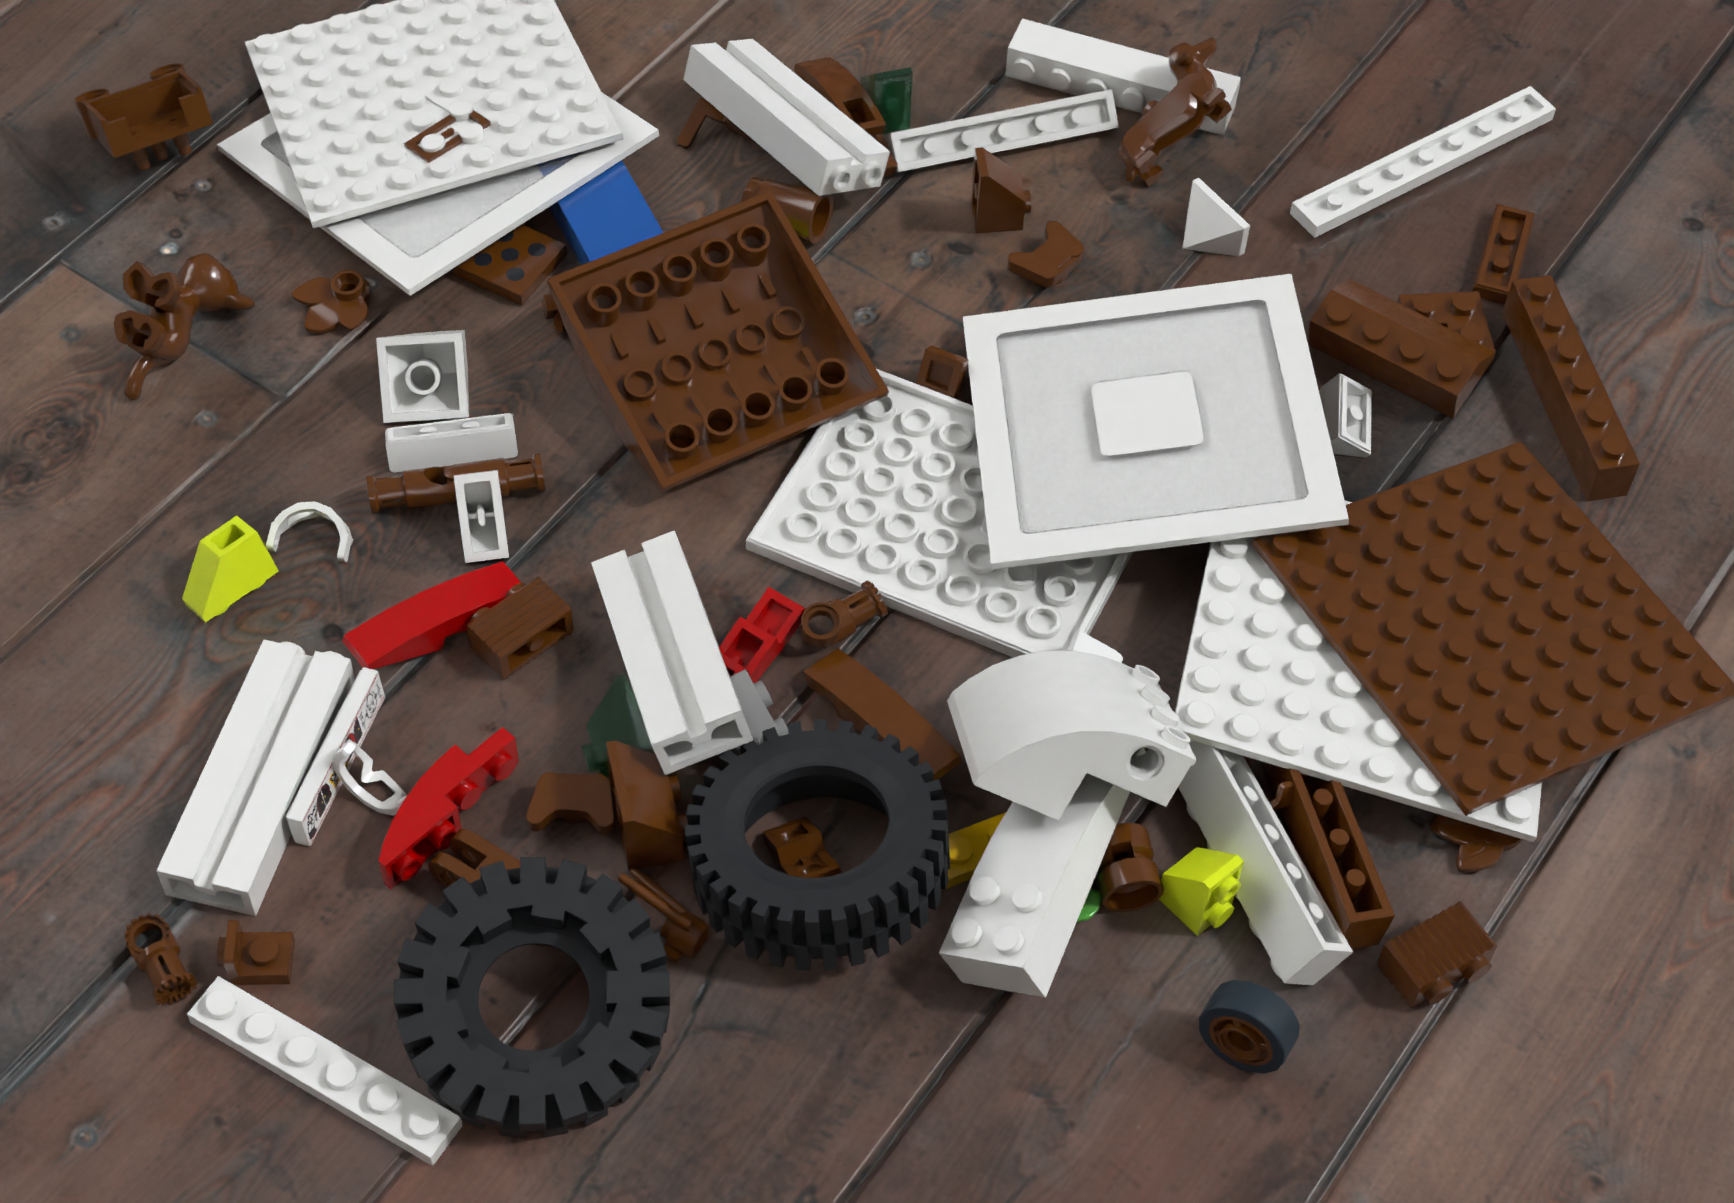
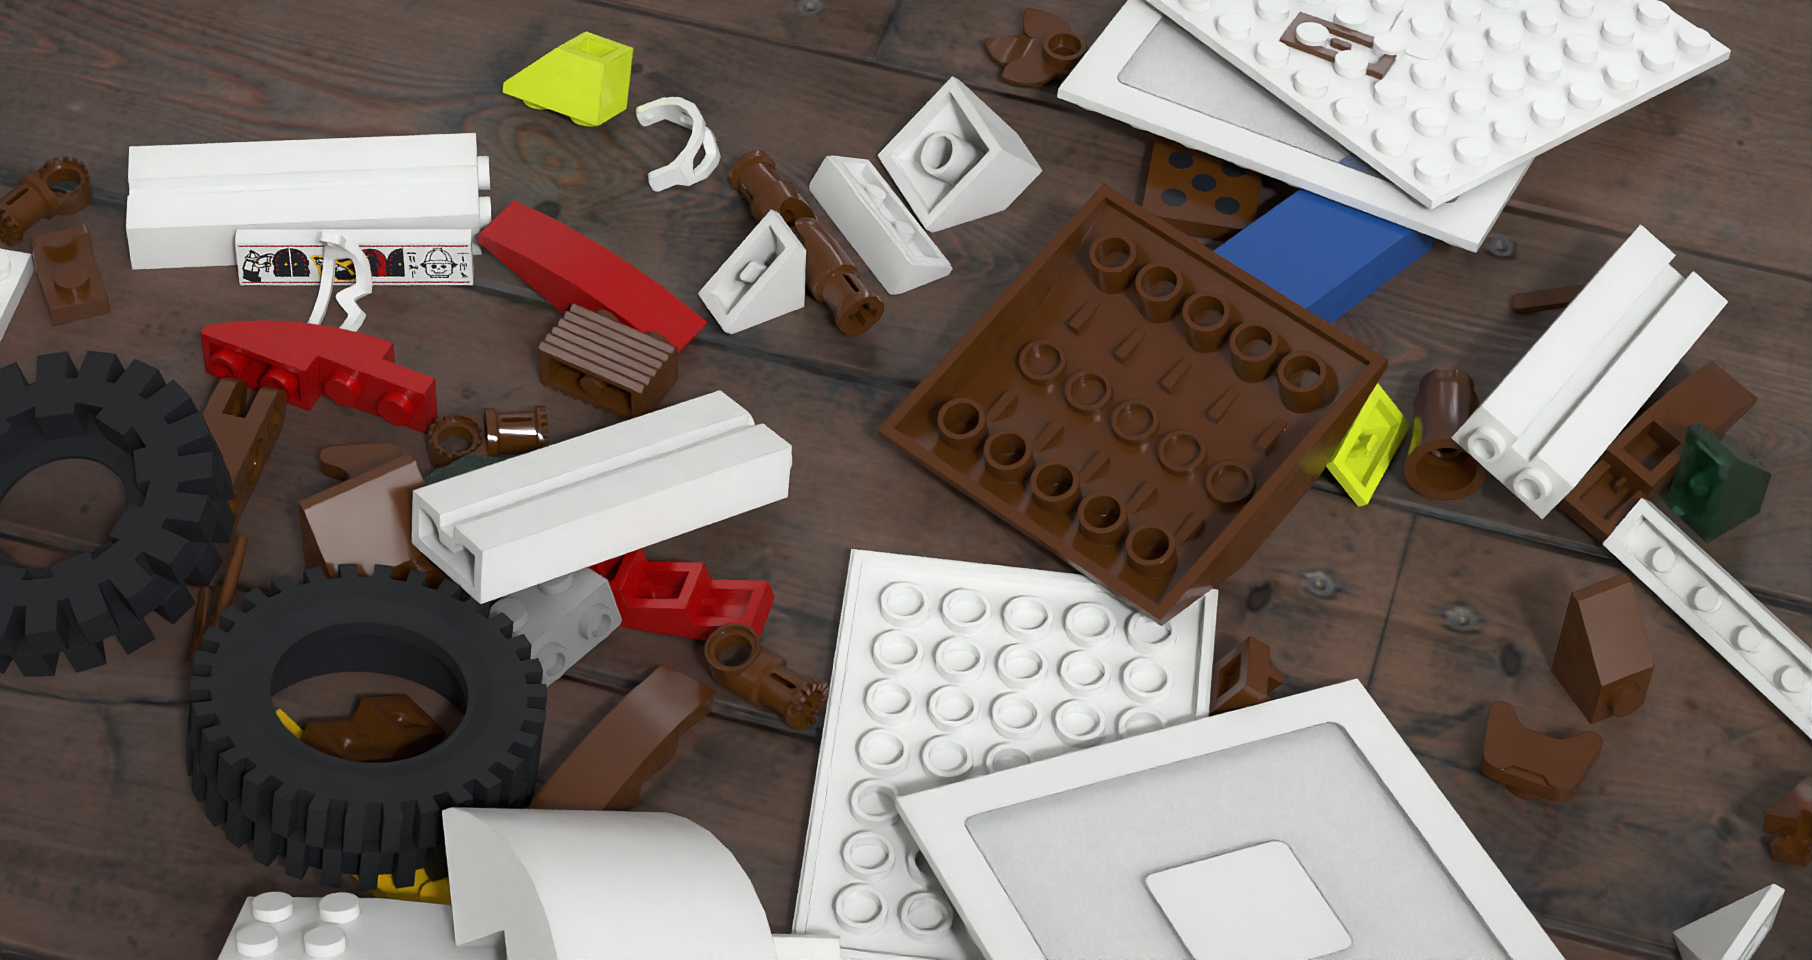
camera: 70 degrees right, 5 degrees down
(547, 724) = (489, 434): none -> reddish brown connector

